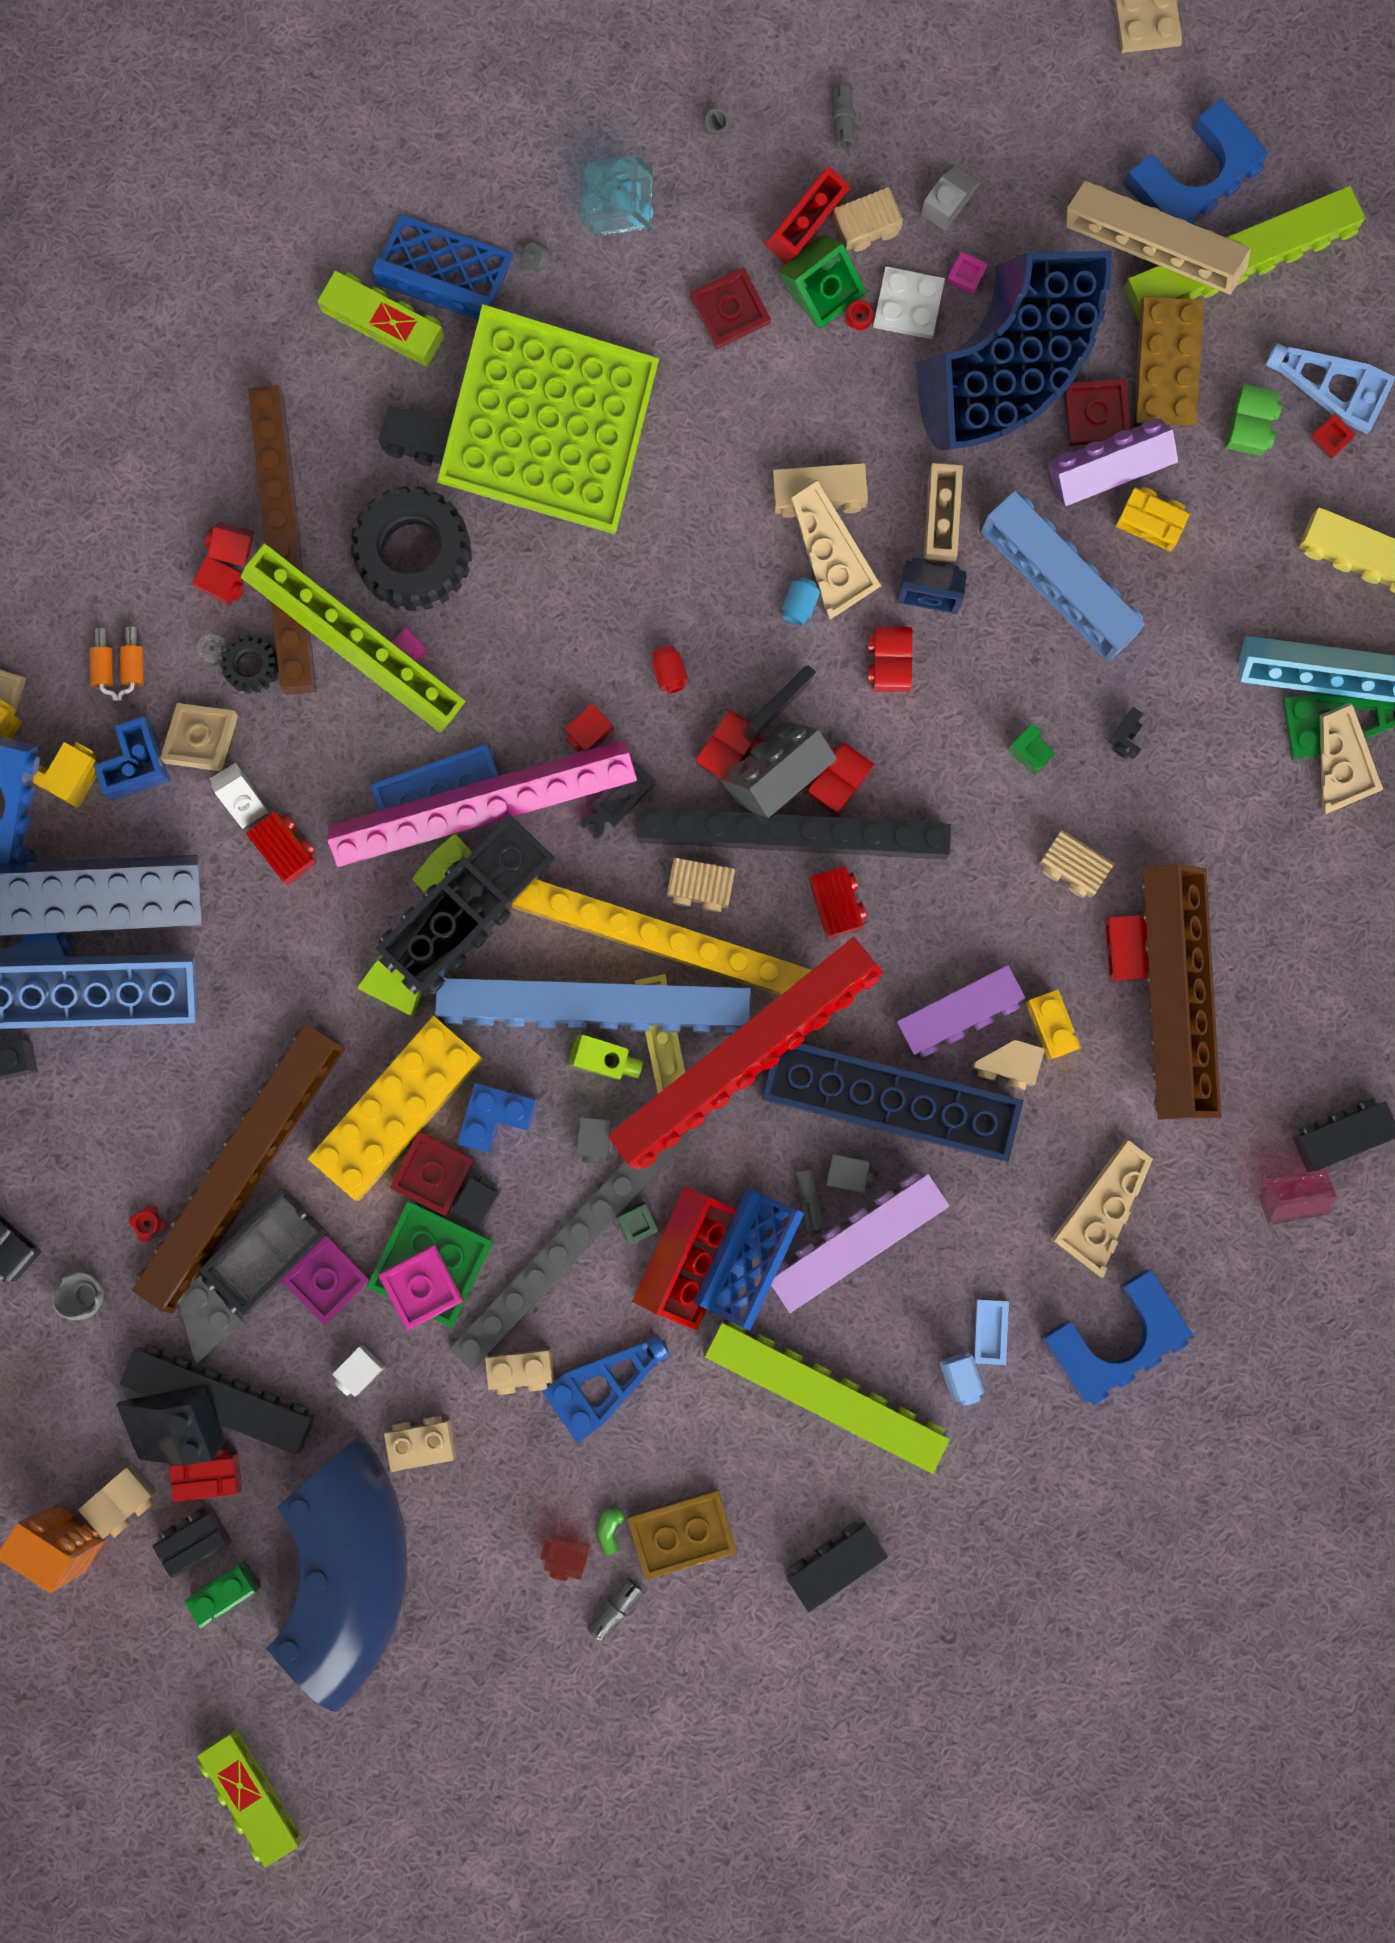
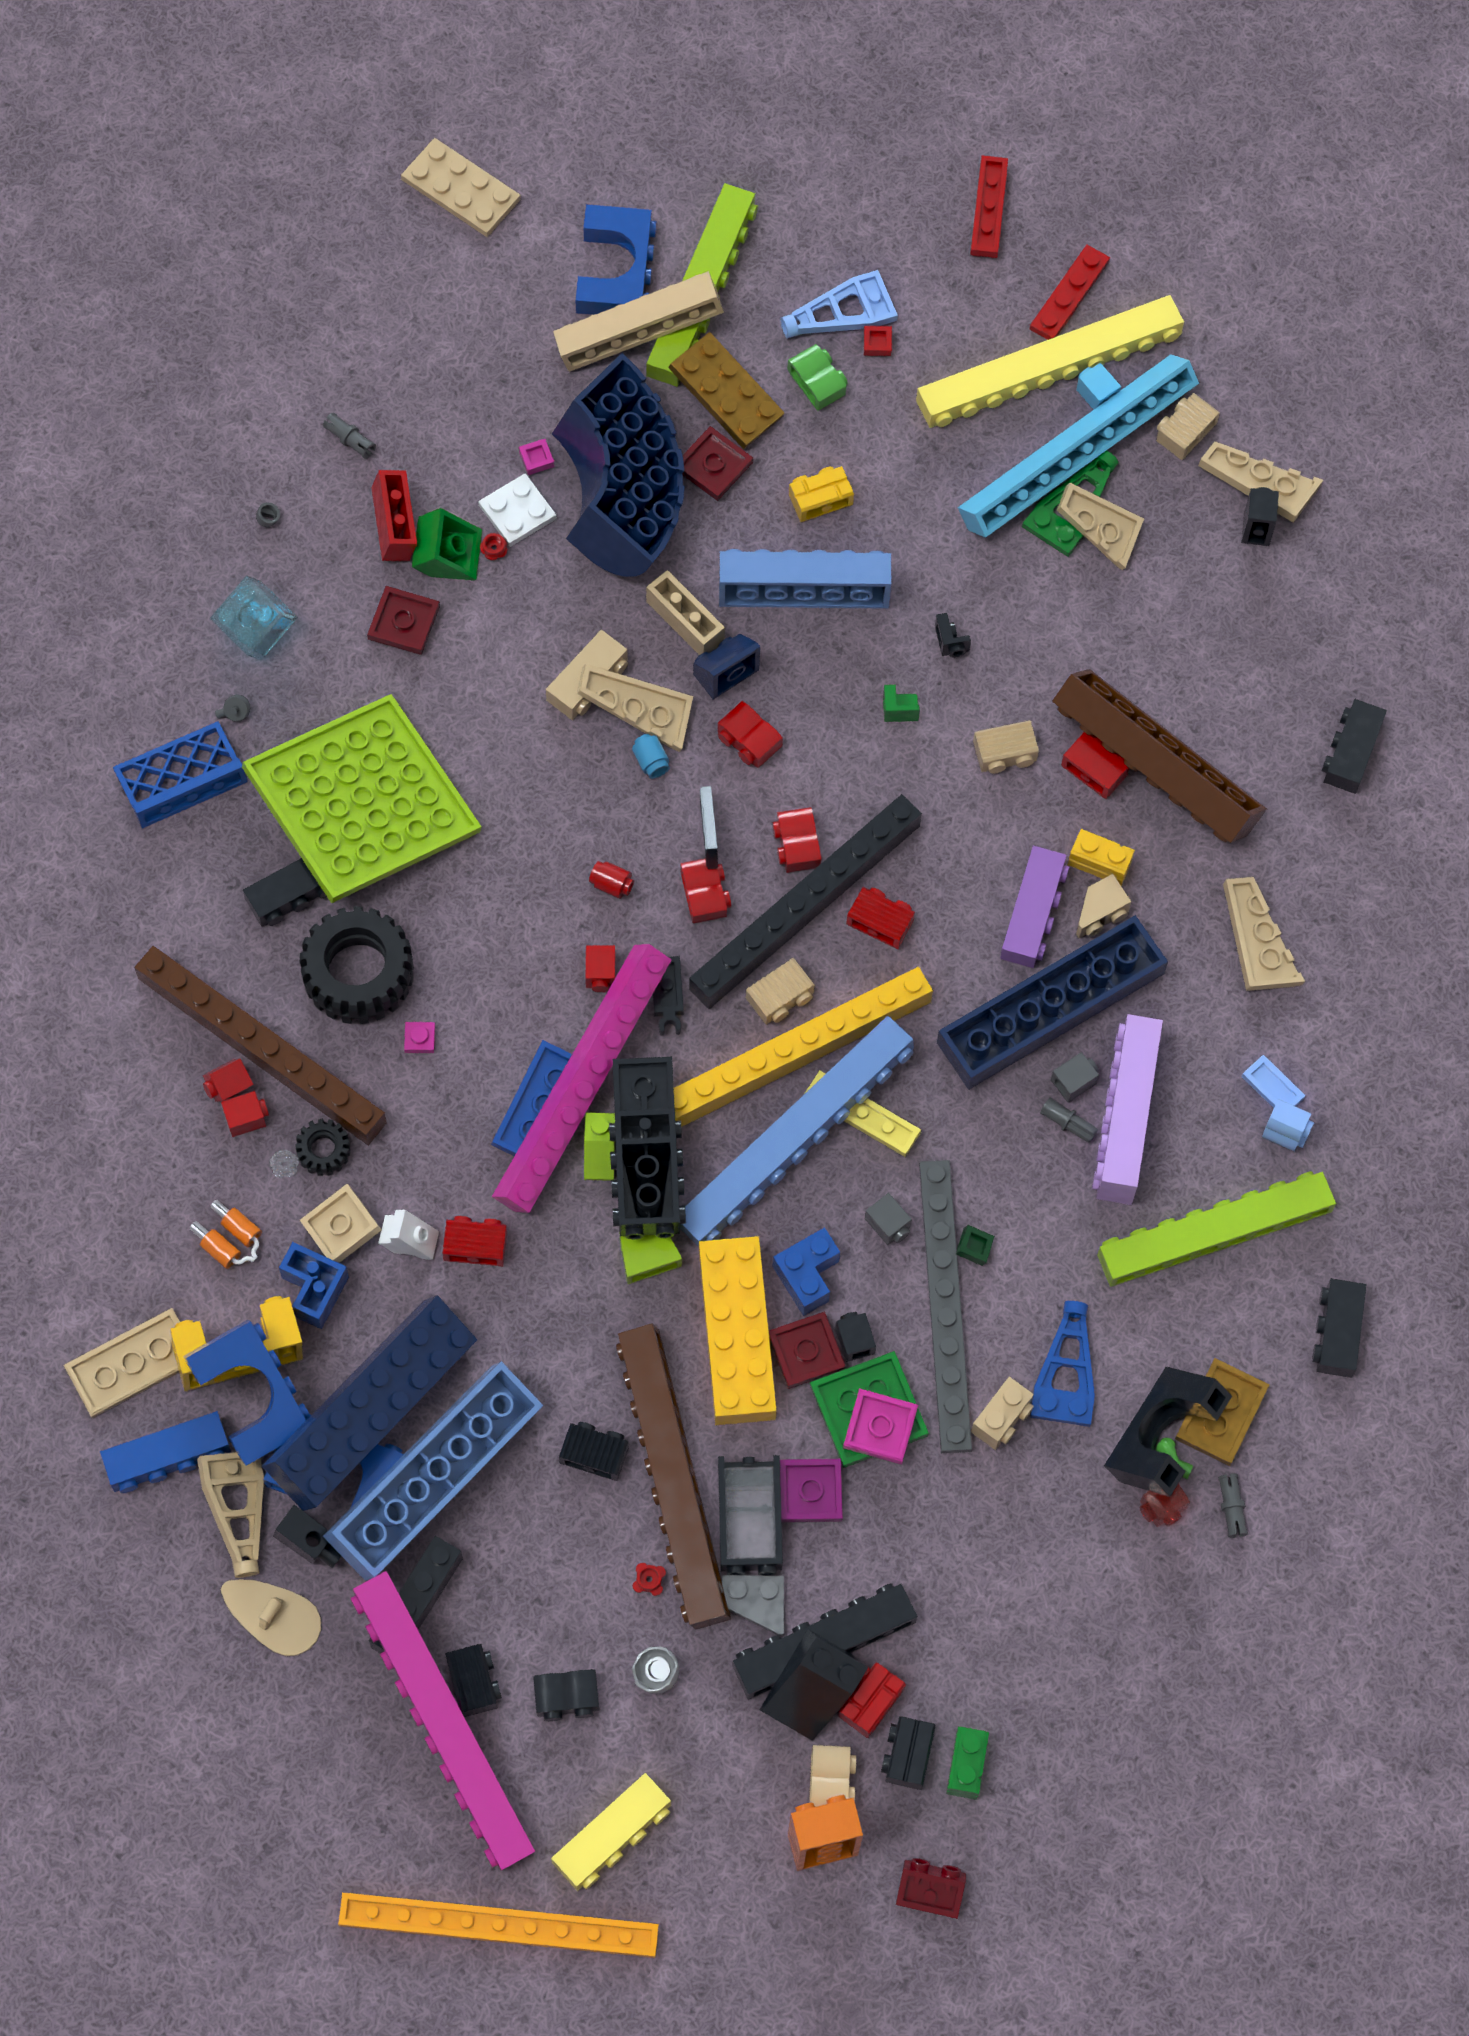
camera: 50 degrees left, 15 degrees down
(107, 1652) = (931, 1888): none -> dark red bracket
(203, 1091) = (594, 1450): none -> black brick
(249, 1798) = (1132, 1878): lime brick -> none
(349, 1576) = (1037, 1660): dark blue brick -> none
(352, 638) = (384, 1052): lime brick -> none
(357, 1371) = (897, 1526): white brick -> none
(381, 318) = (173, 842): lime brick -> none
(420, 1444) = (990, 1530): tan brick -> none
(581, 1500) = (1172, 1397): none -> black arch
(590, 1054) = (836, 1162): lime torso -> none
(684, 1258) = (1033, 1231): red slope -> none
(736, 1257) = (1059, 1195): blue fence -> none
(745, 1054) = (930, 1060): red brick -> none
(778, 768) = (754, 865): dark grey brick -> none
(867, 220) = (436, 482): tan brick -> none
(949, 197) = (474, 422): light grey slope -> none
(1113, 461) = (758, 482): brick -> none
(1161, 1331) = (1375, 975): blue arch -> none
(1297, 1197) = (1366, 809): clear pink brick -> none

